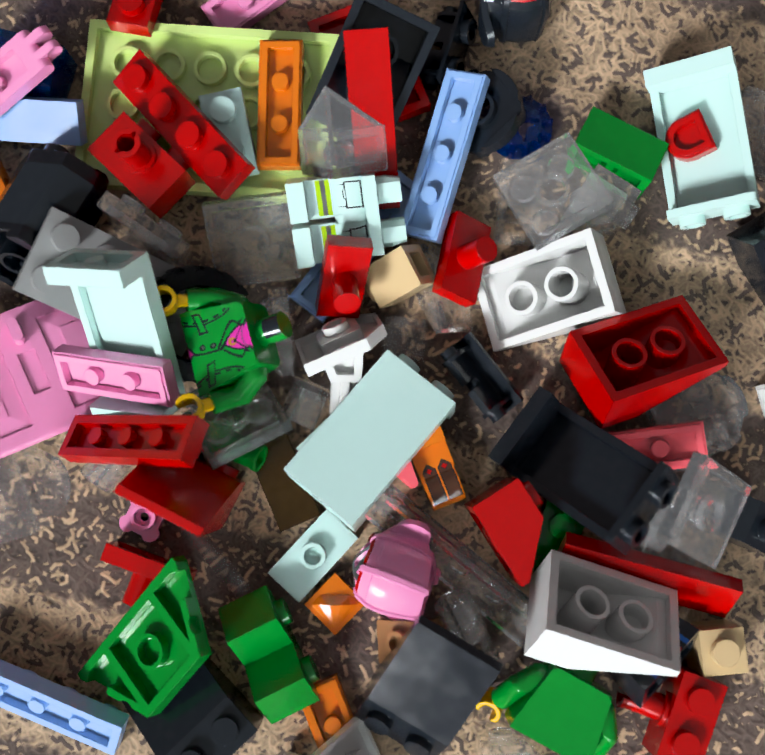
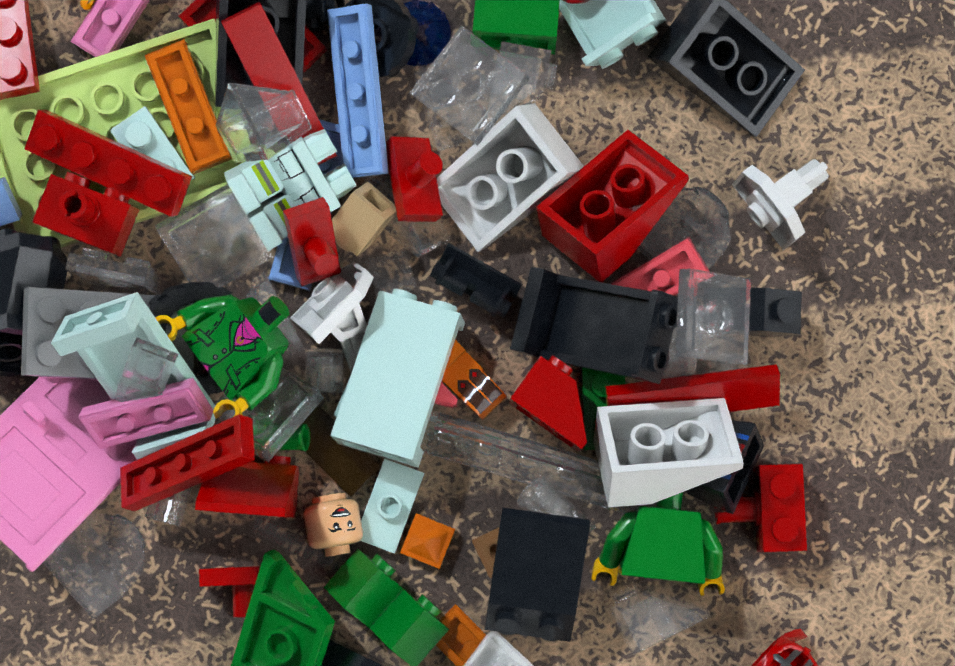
camera: 20 degrees left, 0 degrees up
(126, 333) = (145, 371): none -> clear slope
(147, 529) = (228, 545): bright pink plate -> none
(252, 551) = (333, 524): none -> light nougat head
(396, 571) = (469, 485): bright pink piece -> none
(718, 649) = (785, 435): tan brick -> none

